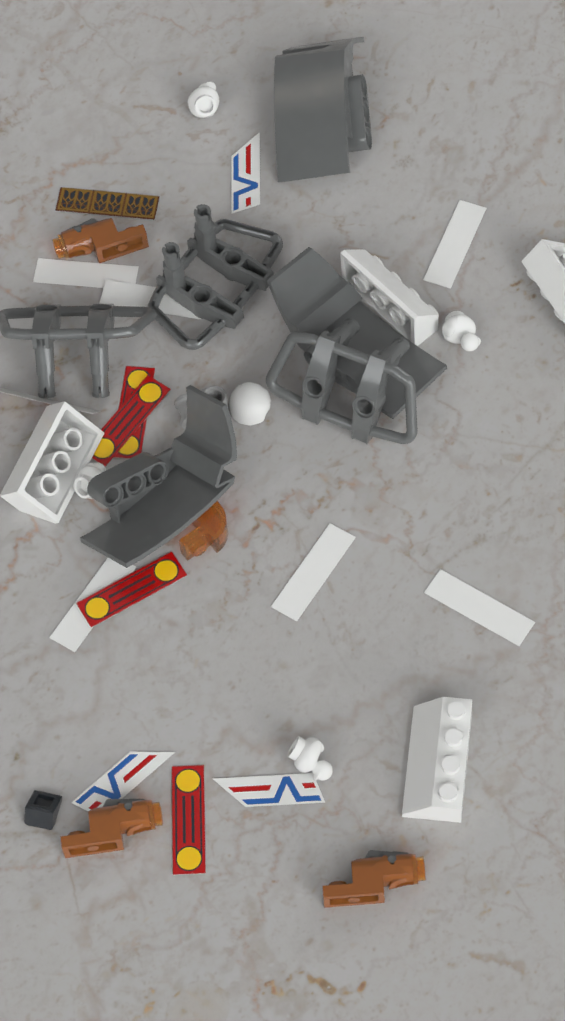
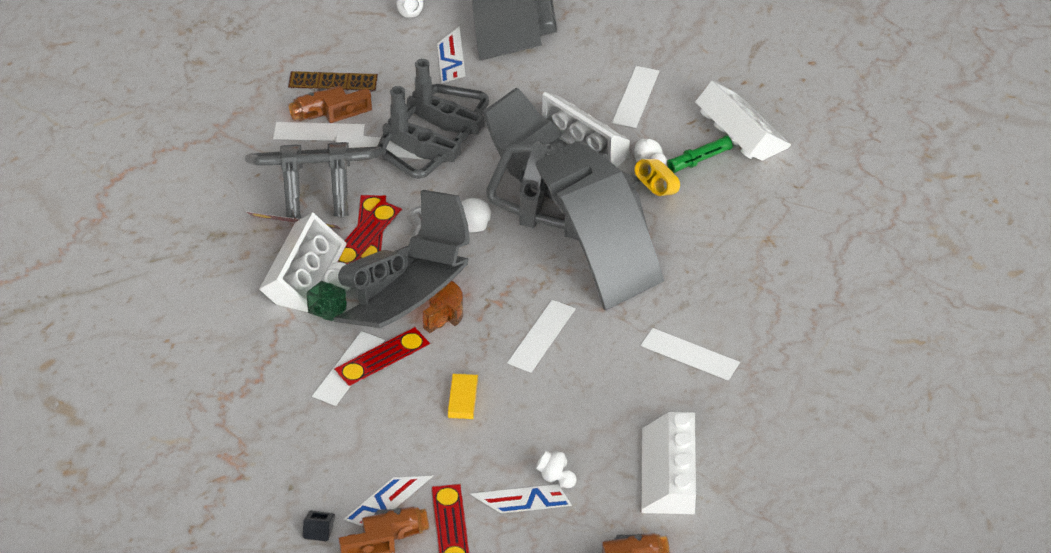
camera: 10 degrees left, 15 degrees down
(73, 516) = (326, 300): none -> clear green brick
(216, 650) = (462, 396): none -> yellow tile
(391, 437) = (605, 219): none -> beam
(465, 366) = (657, 176): none -> yellow beam
(510, 337) = (692, 157): none -> green pin

